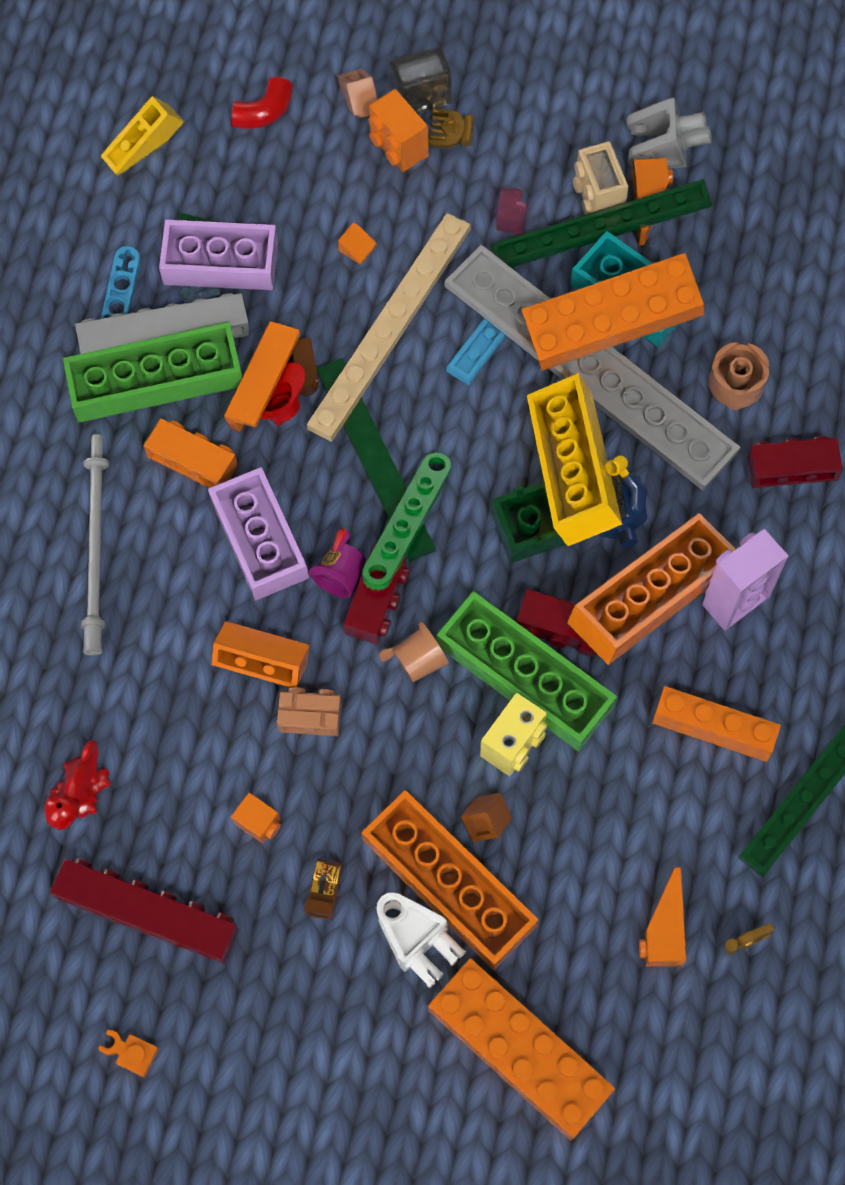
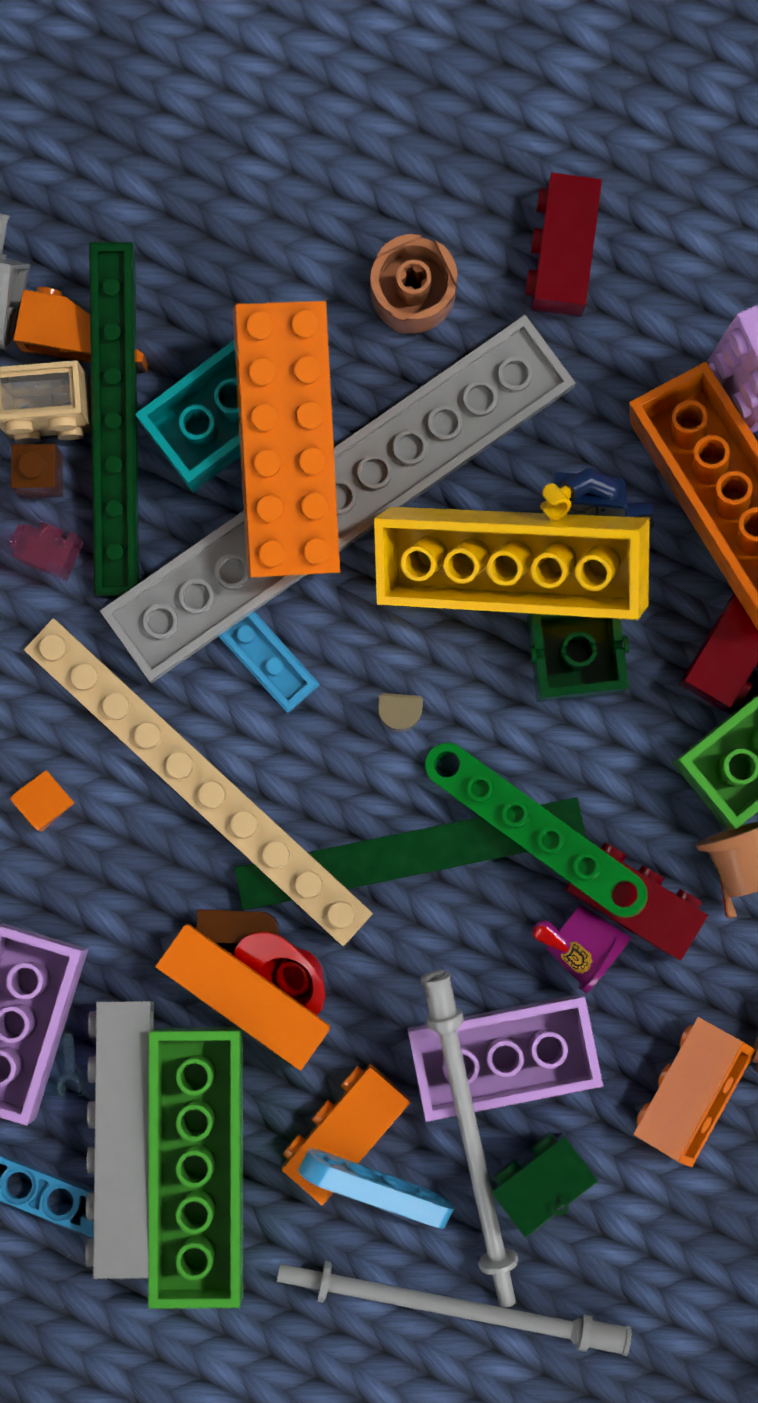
camera: 80 degrees left, 15 degrees up
(160, 472) = (376, 1188): none -> dark azure beam
(183, 569) = (549, 1176): none -> dark green brick
(272, 475) = (445, 1020): none -> light grey bar
(463, 429) = (399, 711): none -> dark tan brick
(558, 193) = (36, 470): none -> reddish brown brick

